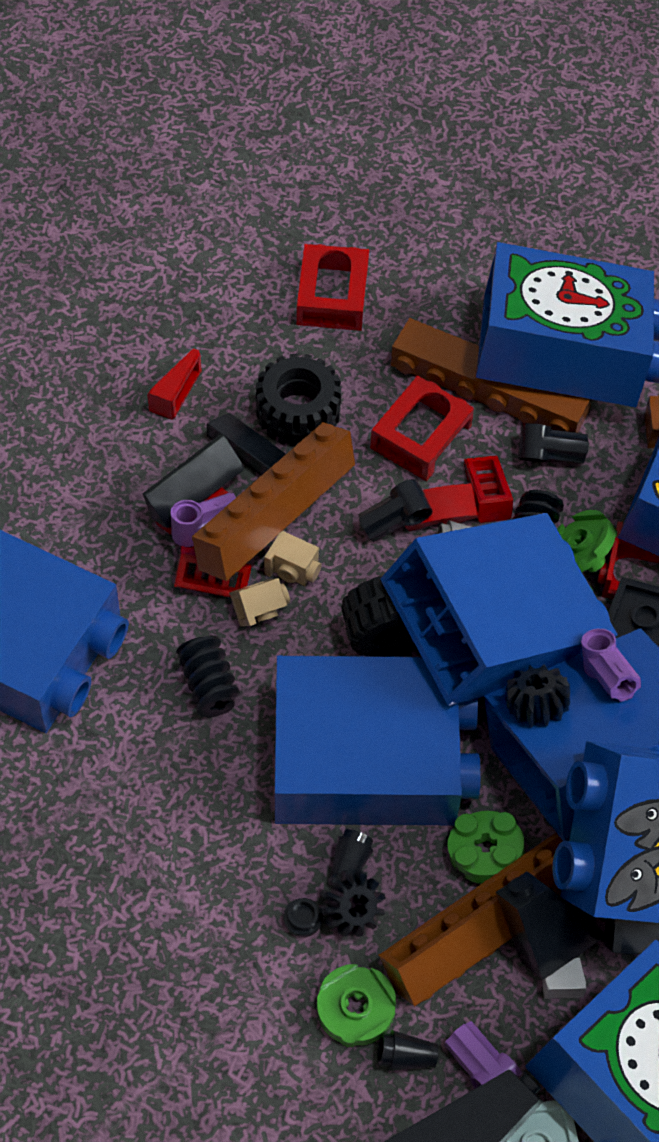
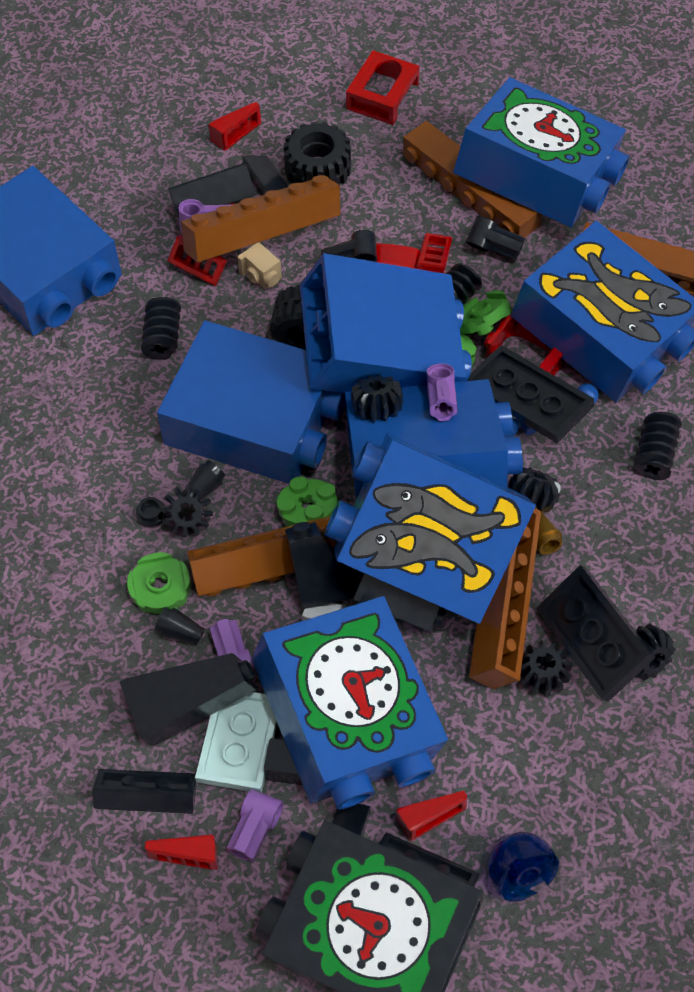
camera: 25 degrees right, 0 degrees up
(260, 601) = (223, 287): tan brick -> none
(408, 453) = (390, 221): red panel -> none

